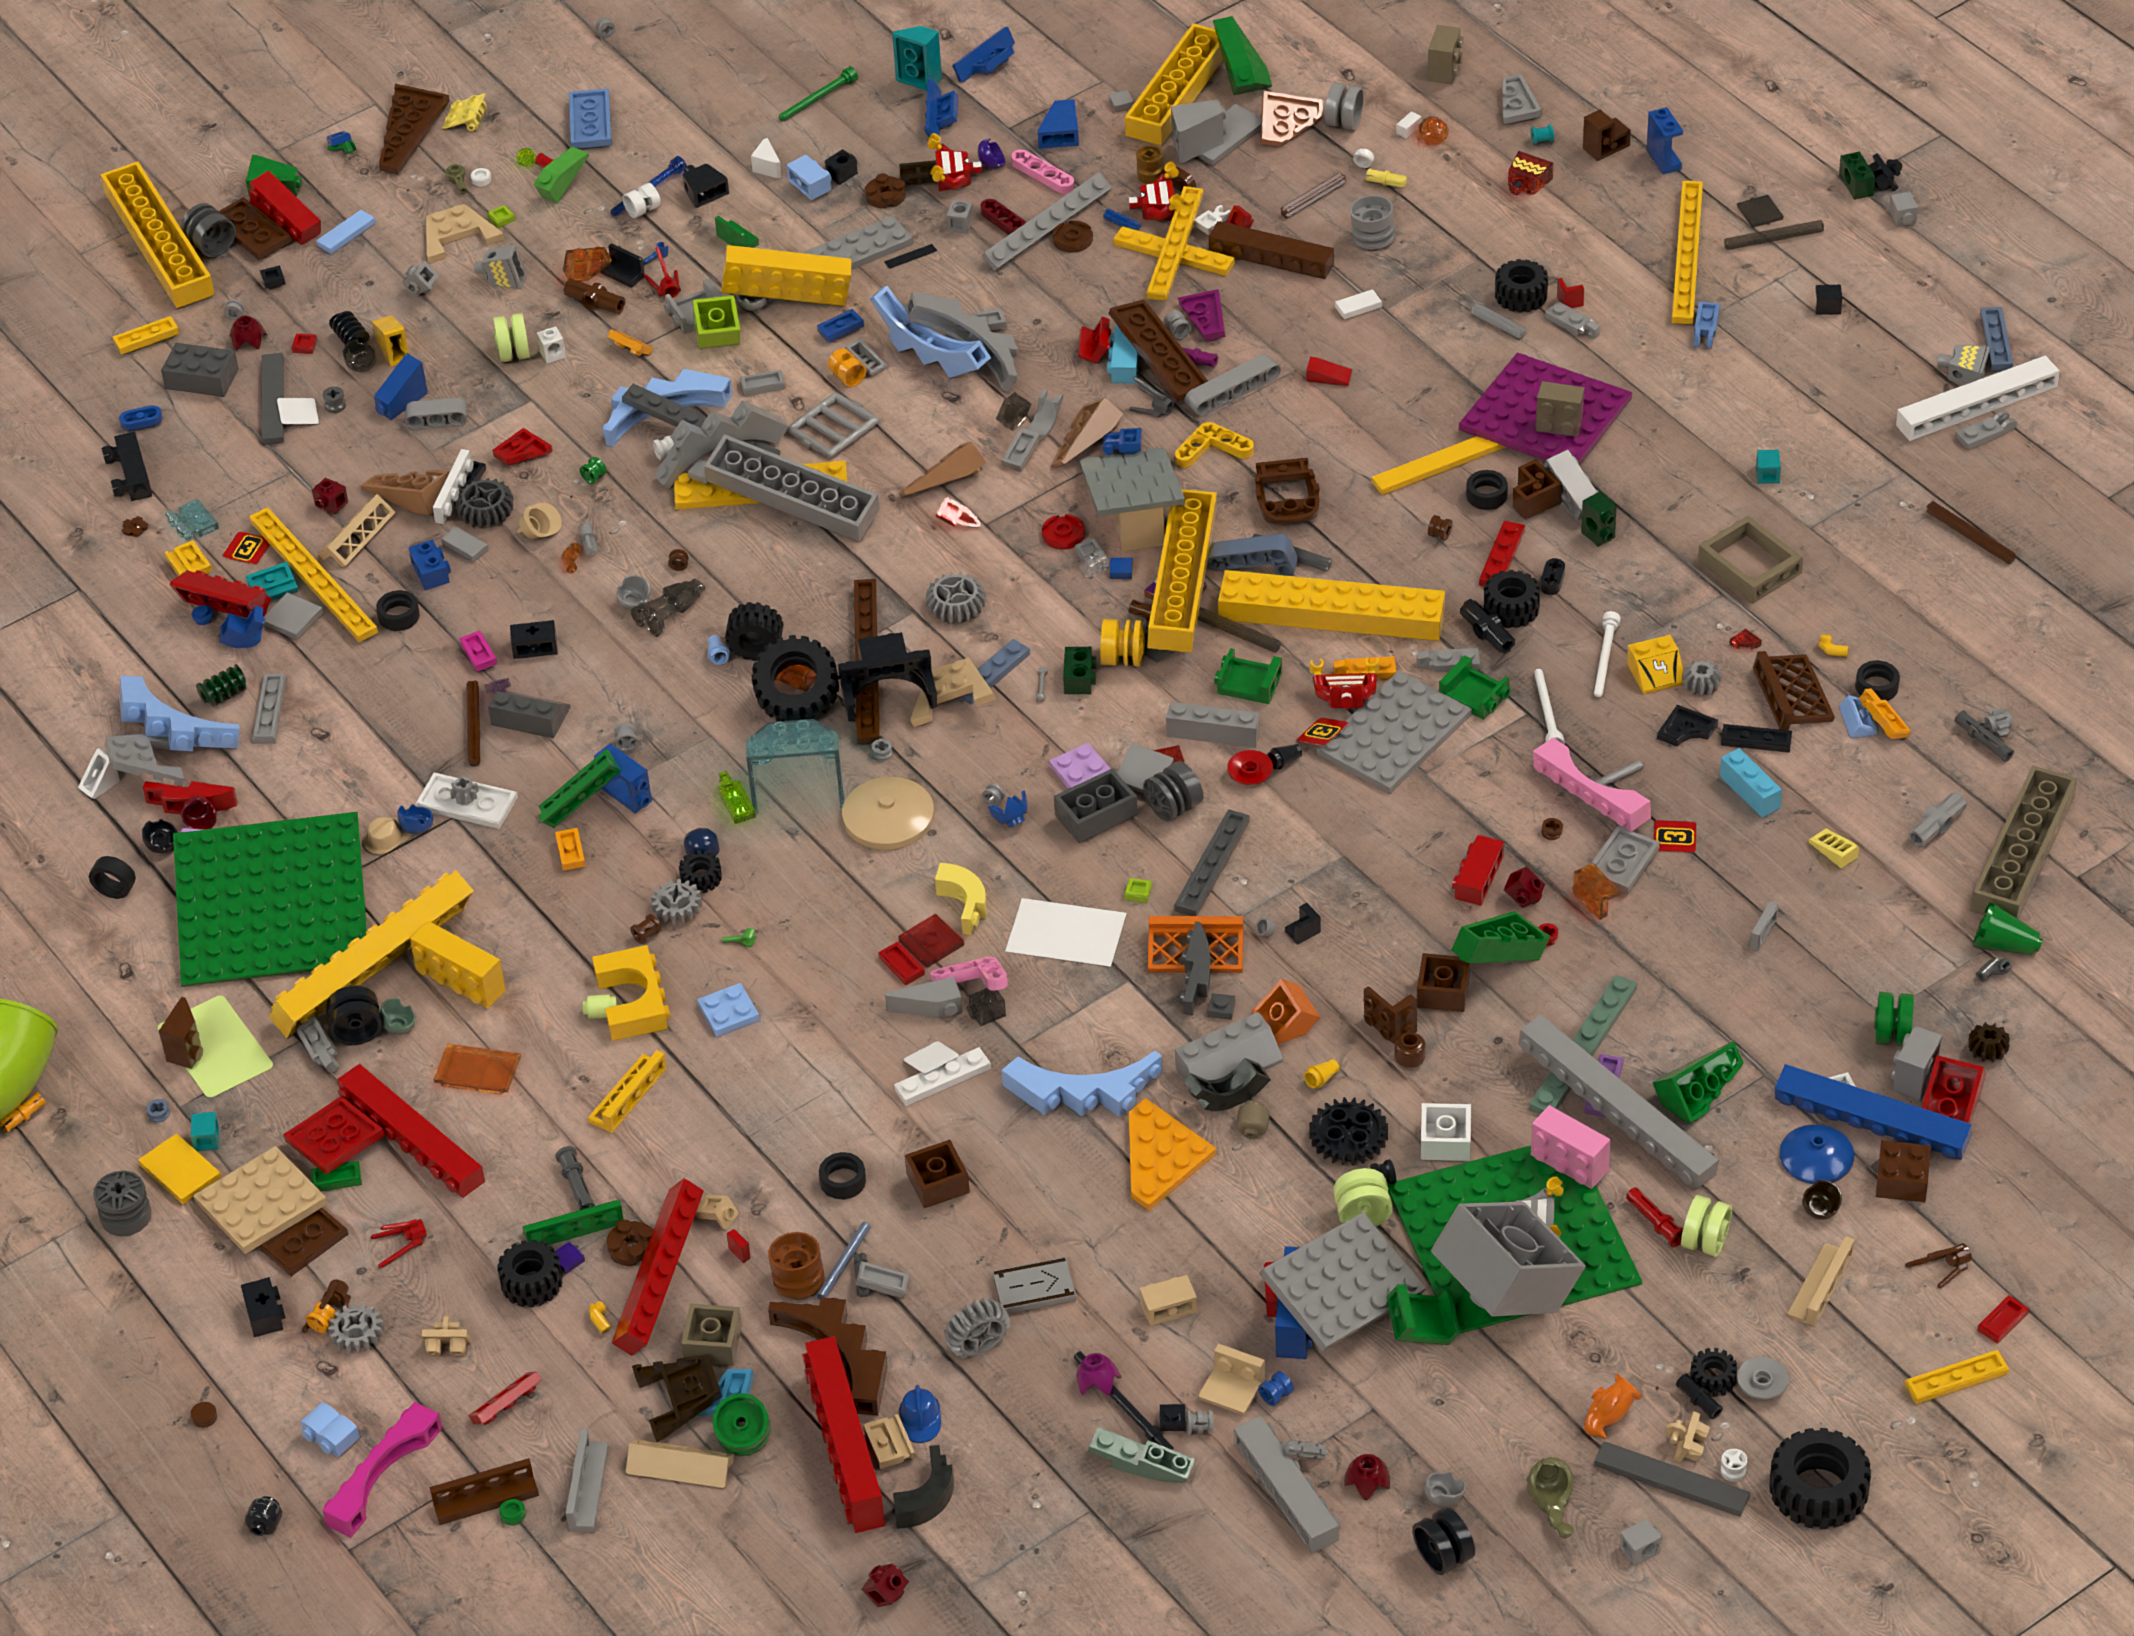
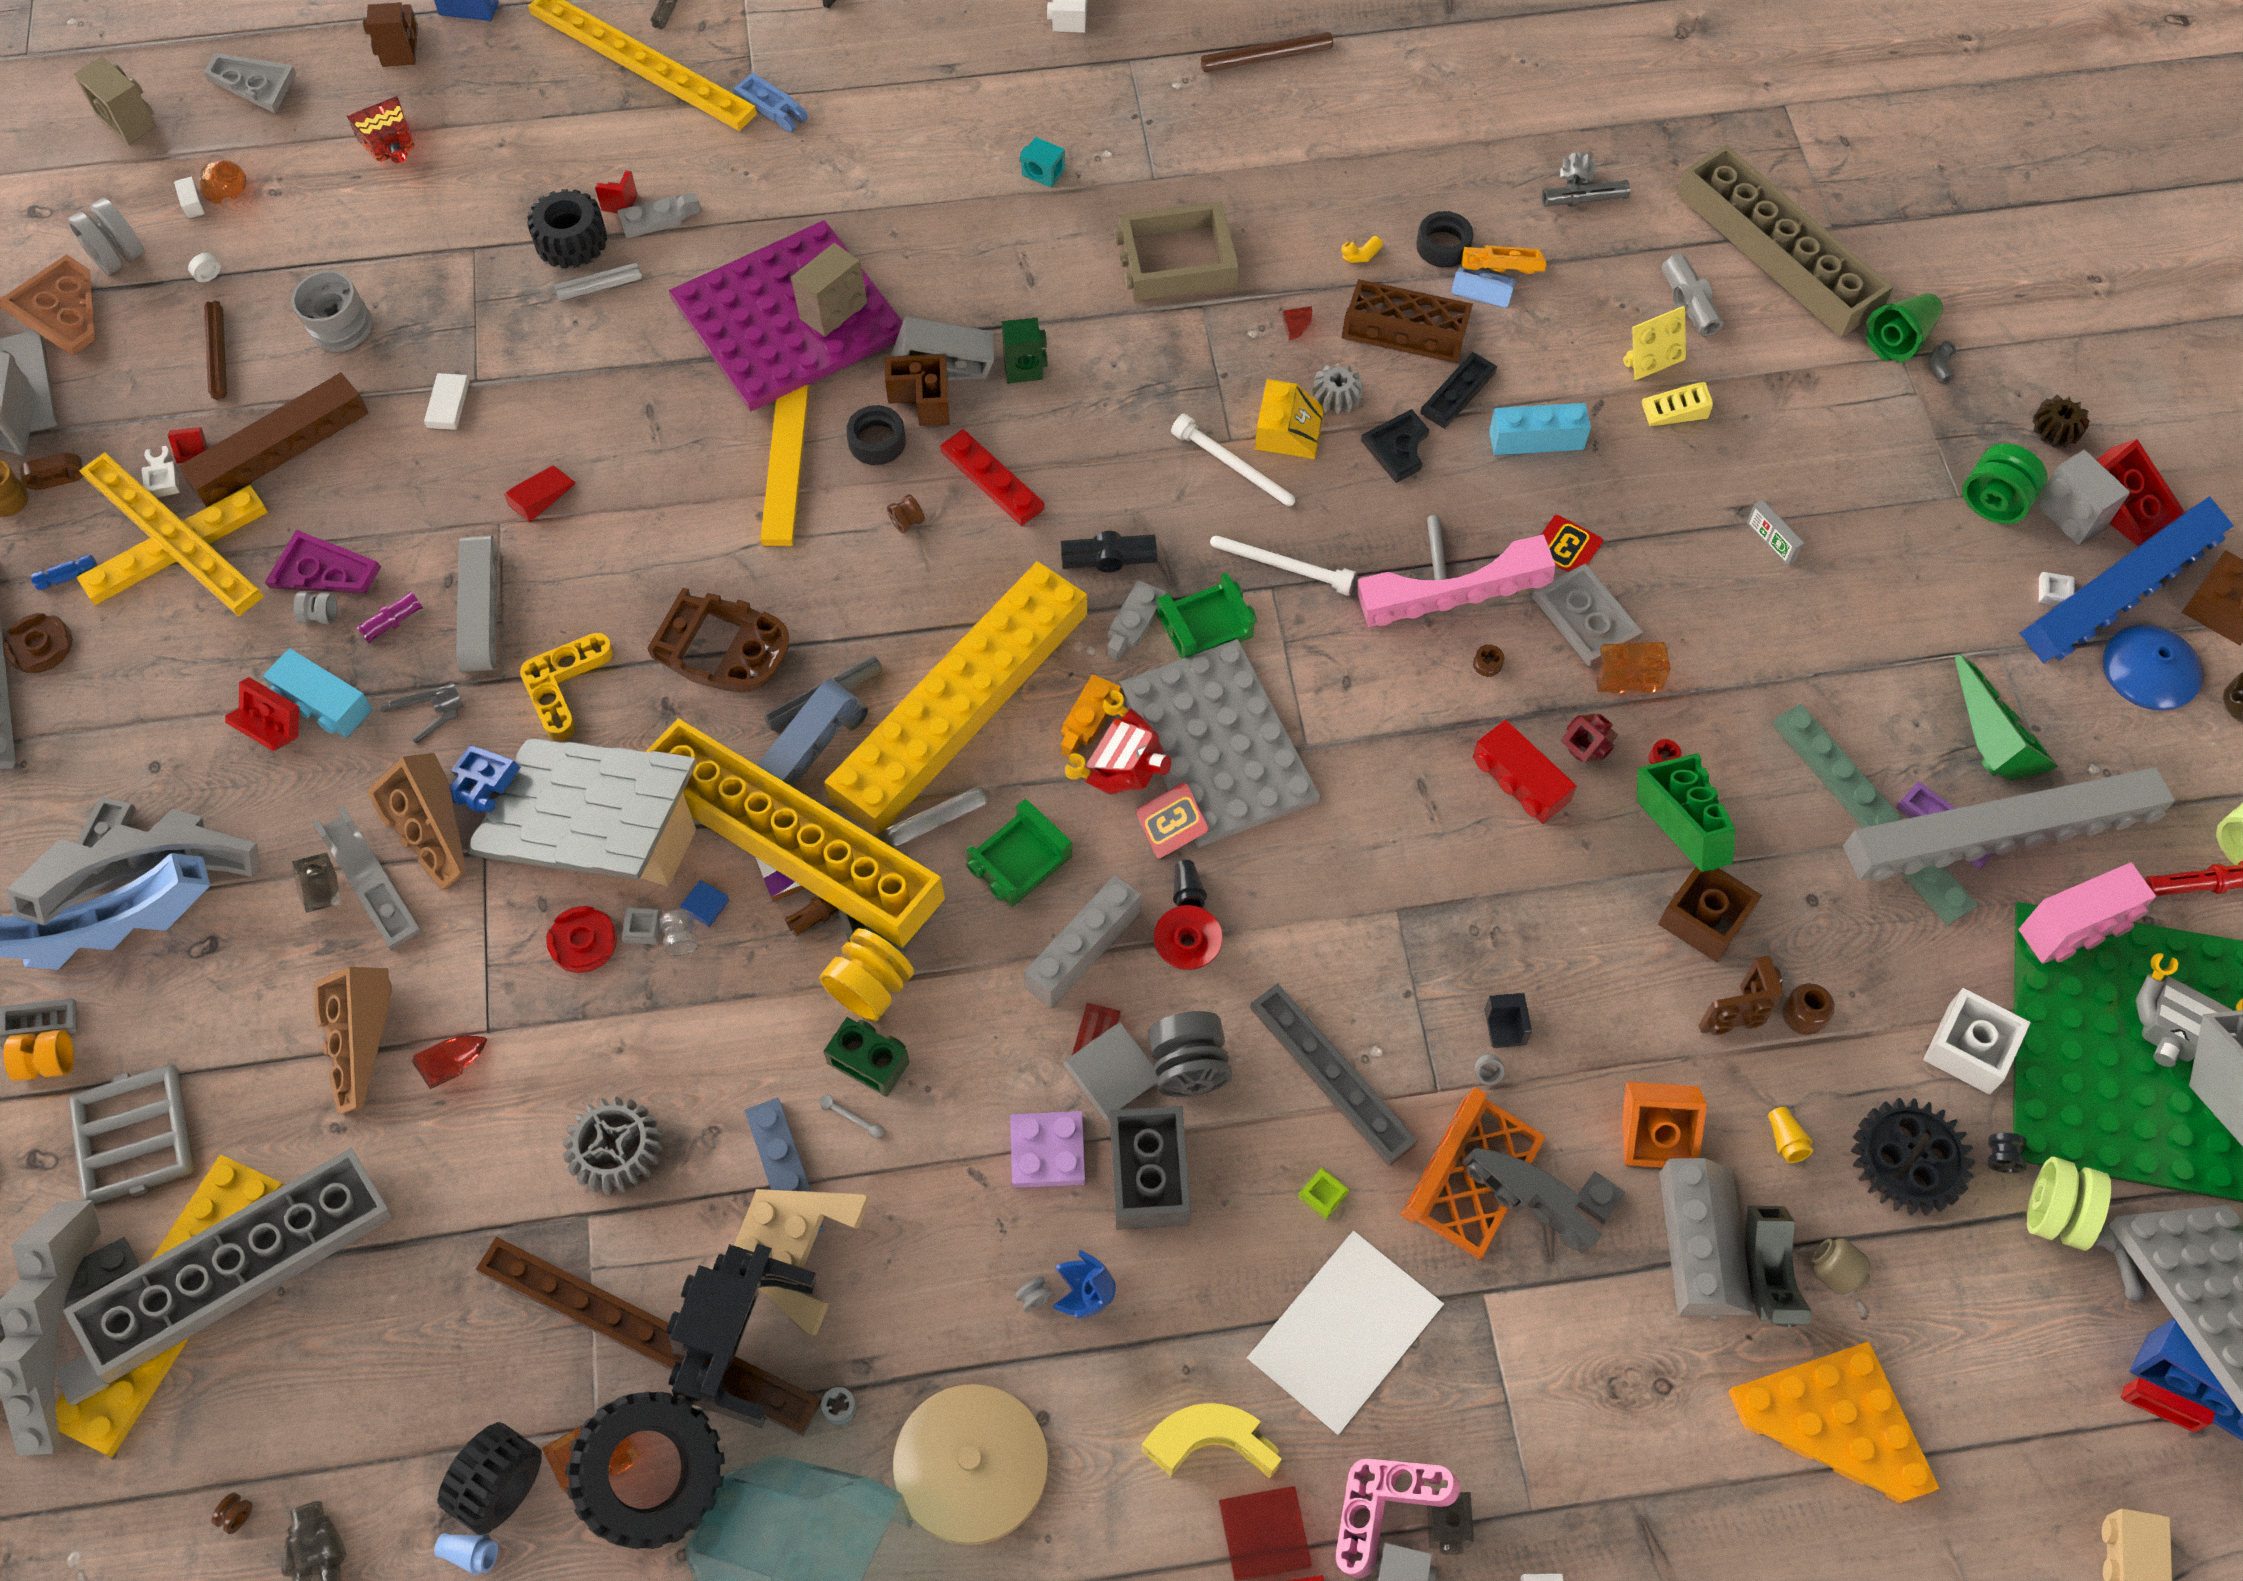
camera: 65 degrees left, 15 degrees up
(1081, 1093) = (1700, 1424): light blue arch -> none
(1158, 197) = (67, 510): torso -> none
(1158, 348) = (353, 649): reddish brown plate -> none
(1386, 178) = (260, 263): light yellow axle -> none
(1512, 597) = (1079, 483): black tyre -> none
(1542, 134) = (331, 86): teal bush -> none
(1548, 576) = (1063, 448): black beam -> none
(1870, 811) = (1658, 343): none -> light yellow hinge

